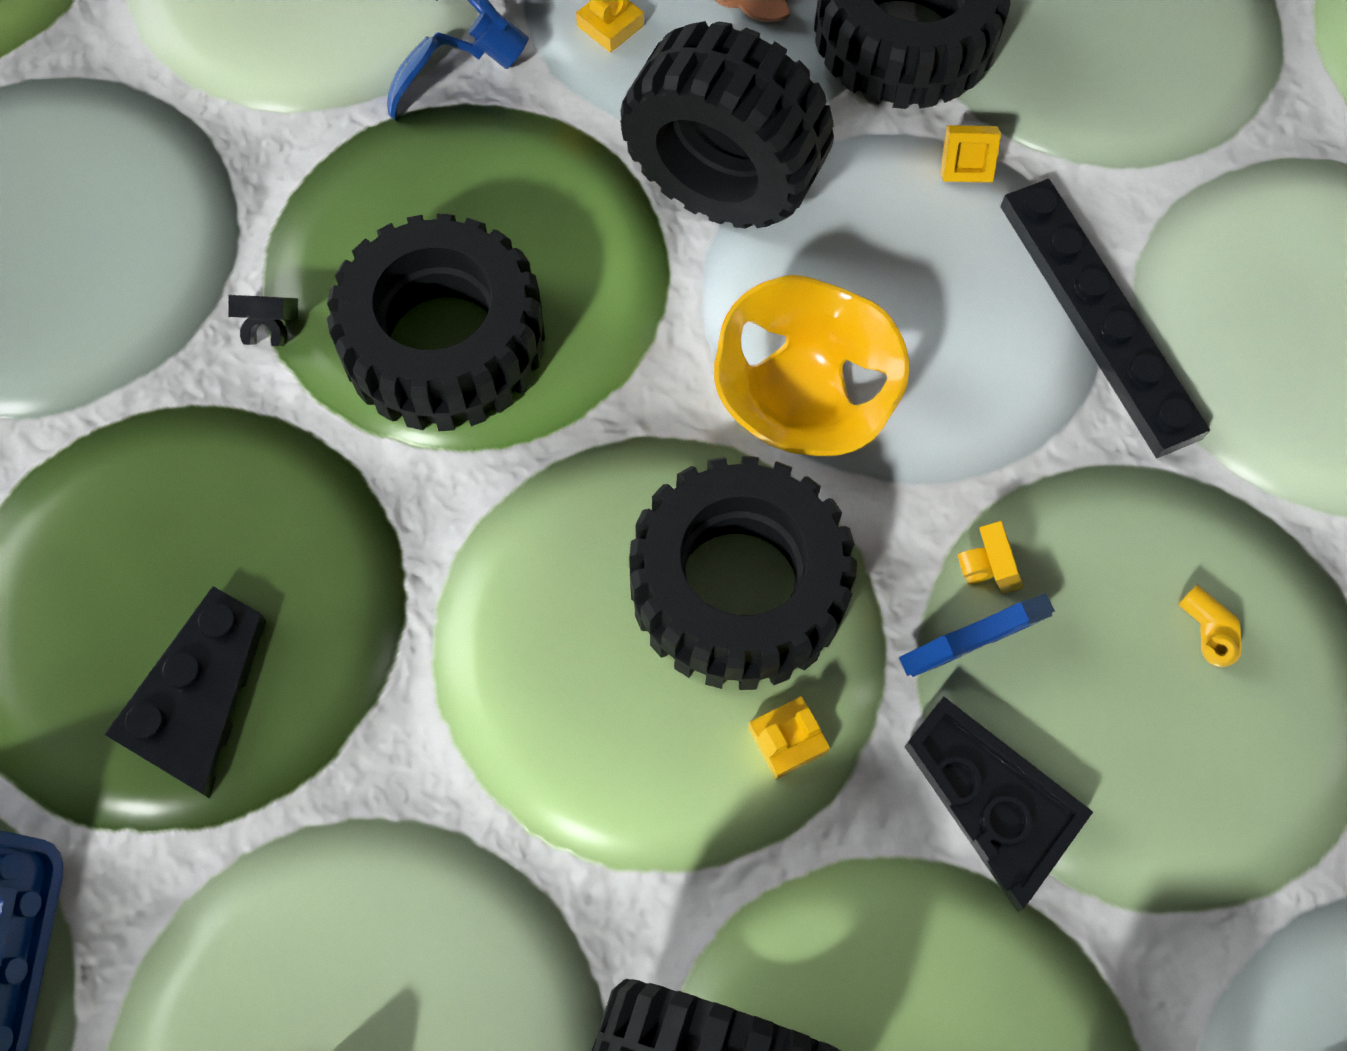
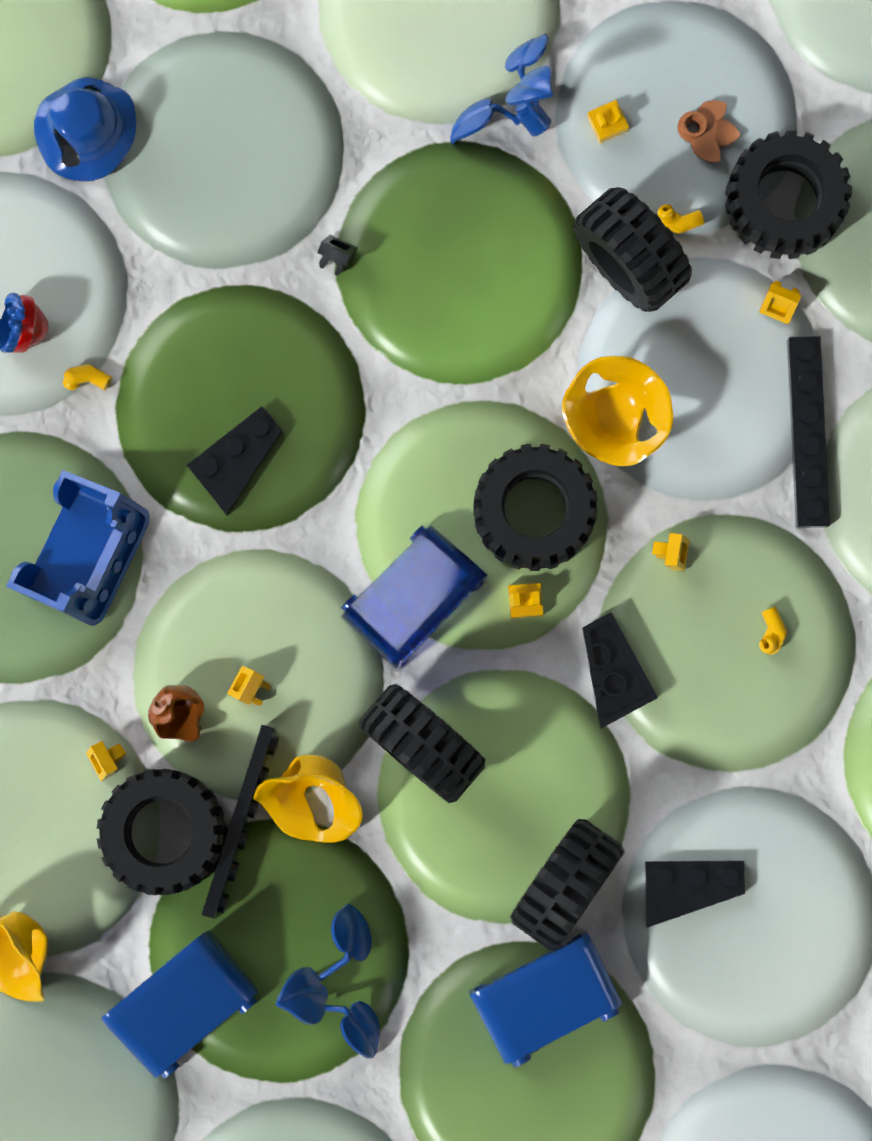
camera: 25 degrees right, 15 degrees up
(423, 264) = (430, 259): black tyre -> none
(592, 808) = (413, 596): none -> clear blue windscreen
(976, 635) = (644, 588): blue tile -> none

